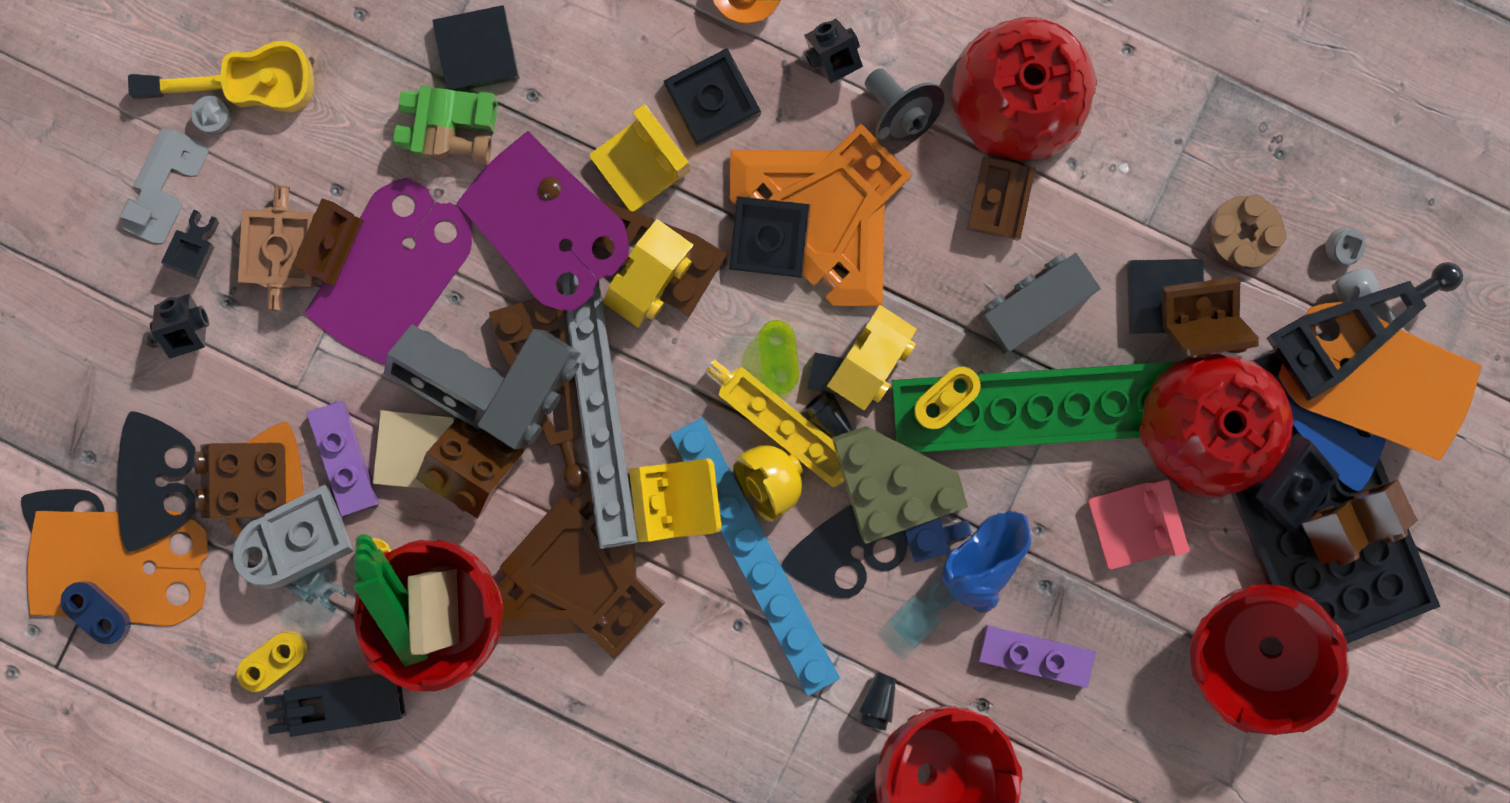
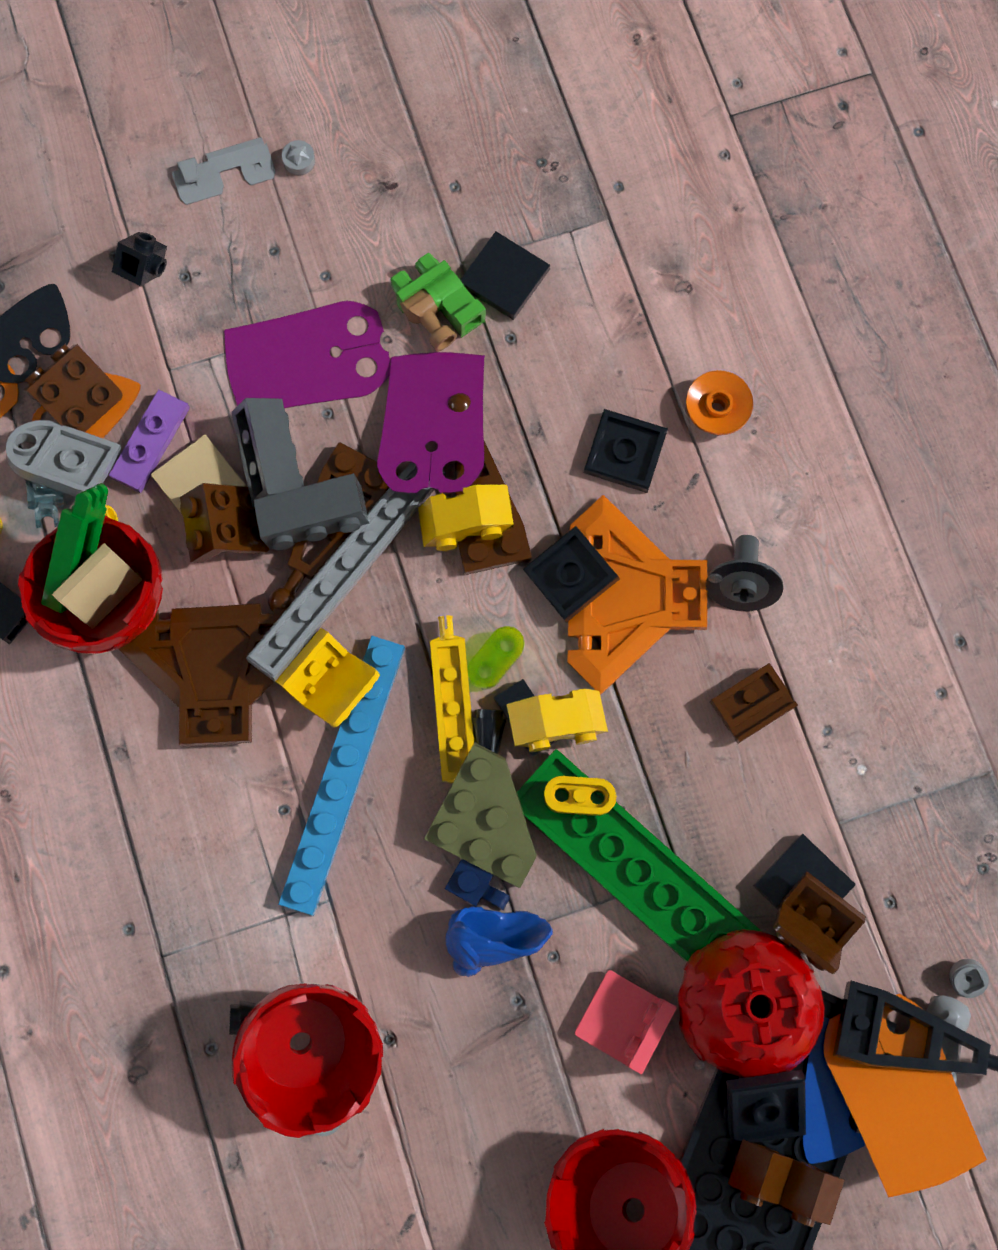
camera: 45 degrees right, 10 degrees down
(190, 251) = (197, 223): black plate -> none
(270, 77) = (359, 169): yellow piece -> none
(270, 246) = (251, 274): nougat plate -> none
(327, 242) = (284, 298): reddish brown plate -> none
(640, 160) = (536, 443): yellow bracket -> none
(770, 478) = (406, 730): yellow cylinder -> none
(830, 547) = (398, 820): black piece -> none
(833, 50) = (736, 495): black brick -> none
(878, 702) = (320, 959): black cone -> none
(916, 618) = (406, 929): clear light blue plate -> none
(1006, 112) = (820, 661): red piece -> none
(1036, 656) = (462, 1043): medium lavender plate -> none
(1038, 301) = (710, 797): dark grey brick -> none
(1267, 234) = (889, 910): medium nougat plate -> none

